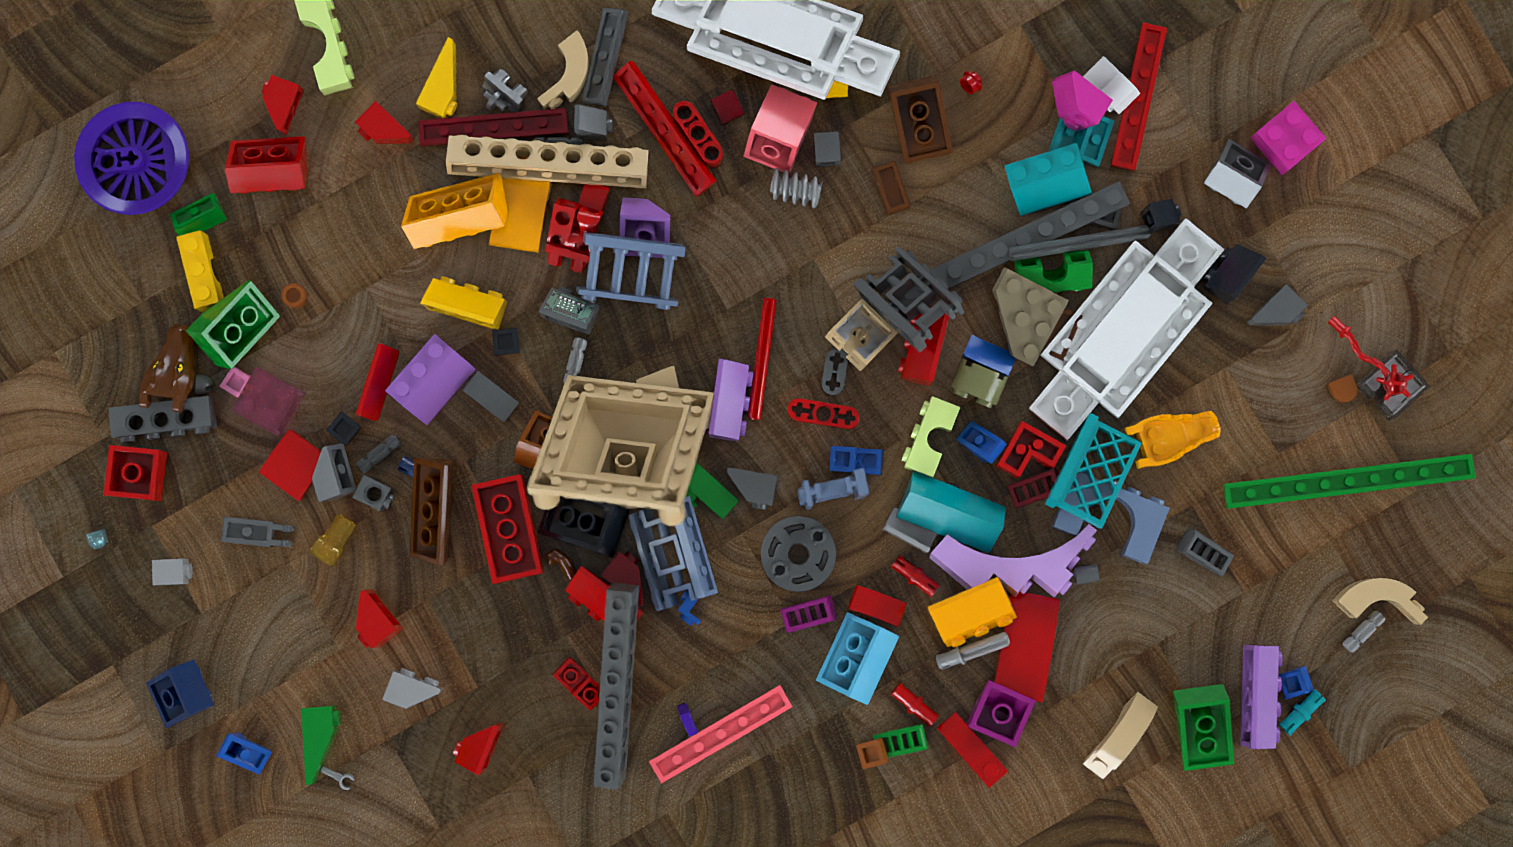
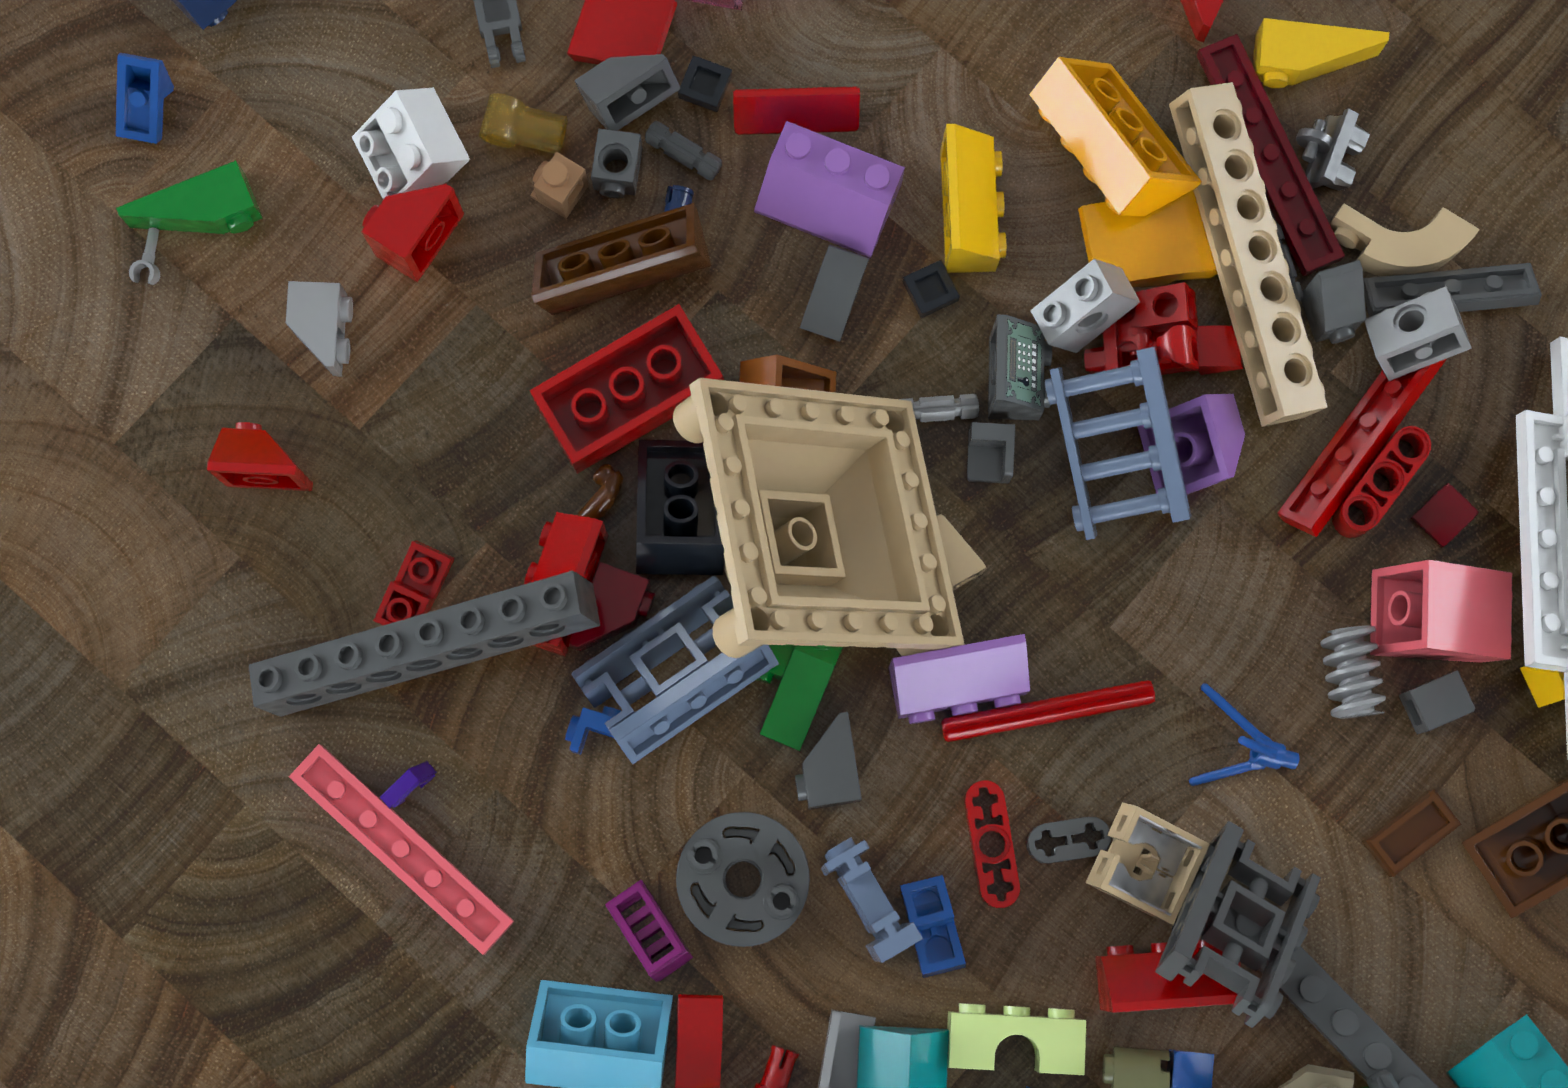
camera: 70 degrees right, 5 degrees down
(324, 607) = (410, 143): none -> white slope
(375, 530) = (559, 184): none -> medium nougat brick
(548, 261) = (1085, 306): none -> light grey brick
(610, 341) = (990, 452): none -> dark grey panel
(628, 74) = (1417, 333): none -> light grey brick
(821, 251) = (1263, 750): none -> blue plant

